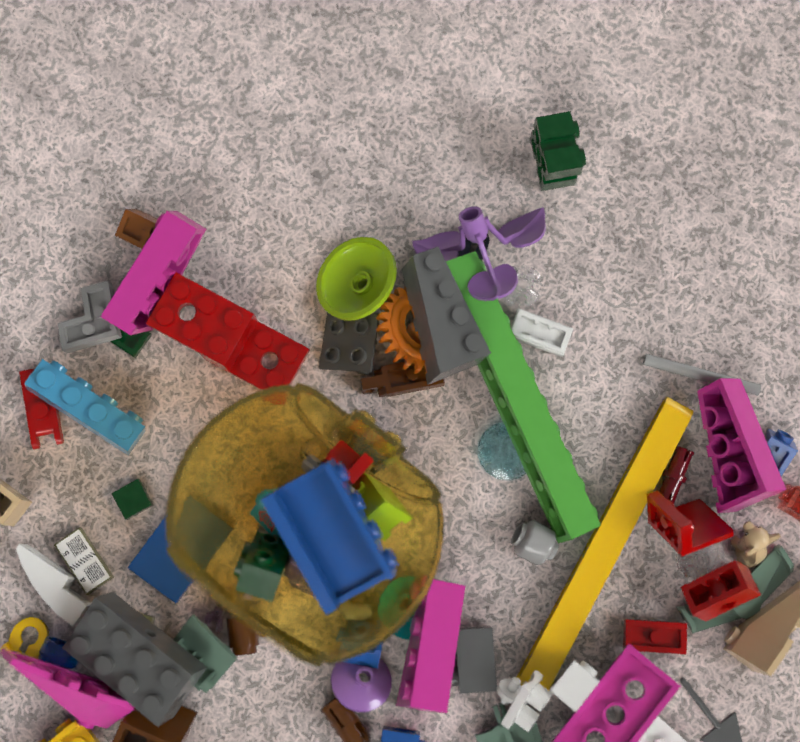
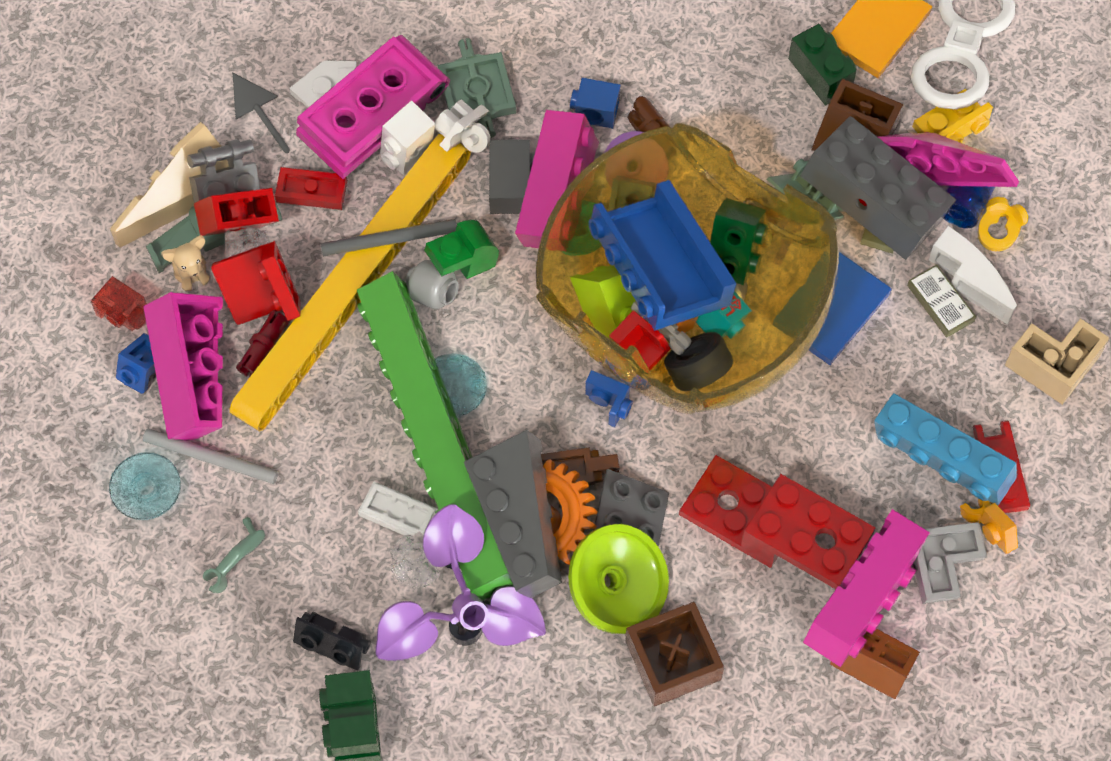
camera: 175 degrees left, 15 degrees down
(47, 346) = (997, 525): none -> light orange plate
(132, 499) = (888, 360): dark green tile -> none
(285, 442) = (700, 363): none -> black tyre
(309, 221) = (674, 653): none -> reddish brown brick
(511, 570) = (464, 249): none -> green brick
(578, 578) = (388, 237): none -> dark grey bar
(591, 227) = (316, 634): none -> black hinge
(665, 287) = (239, 551): none -> sand green piece
(732, 628) = (233, 179): none -> flat silver plate
(765, 338) = (143, 471): none -> clear light blue dish

